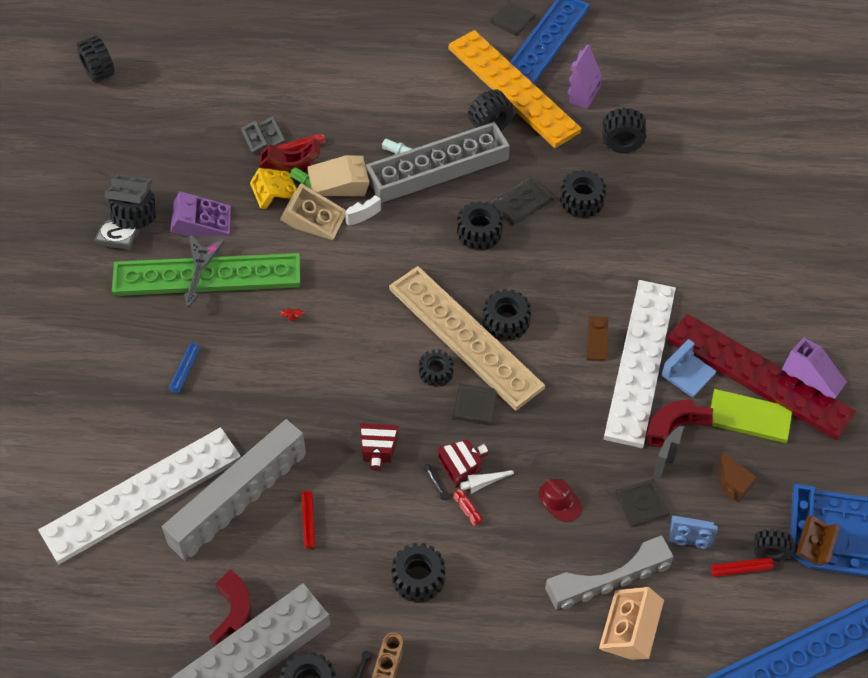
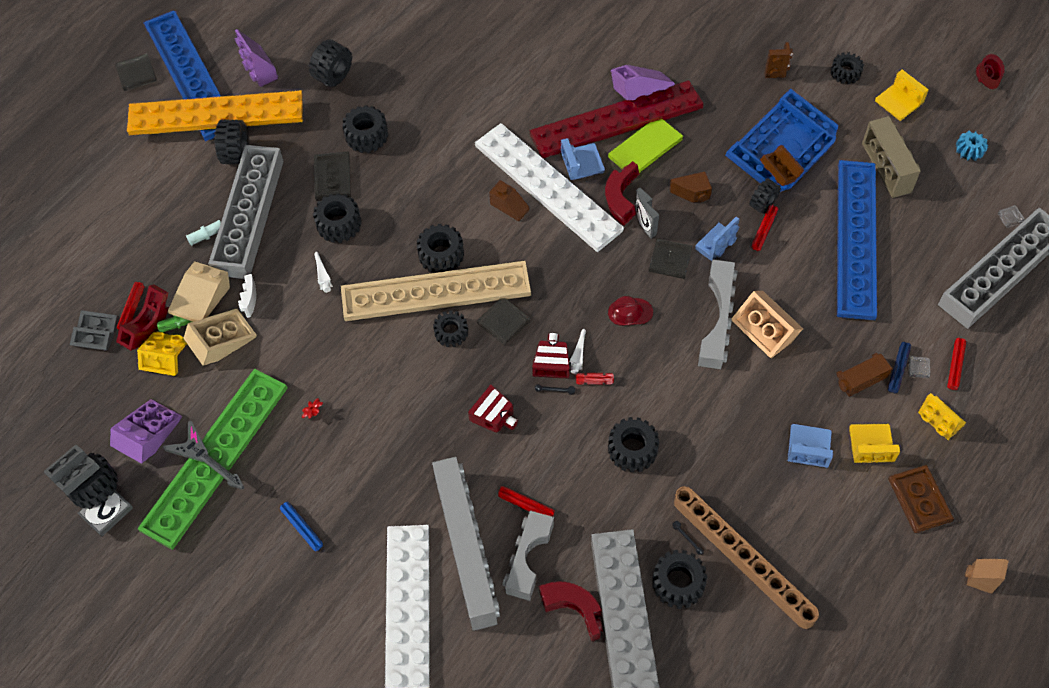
camera: 55 degrees left, 5 degrees up
(234, 551) = (536, 532): none -> light grey arch
(417, 251) = (323, 277): none -> white piece

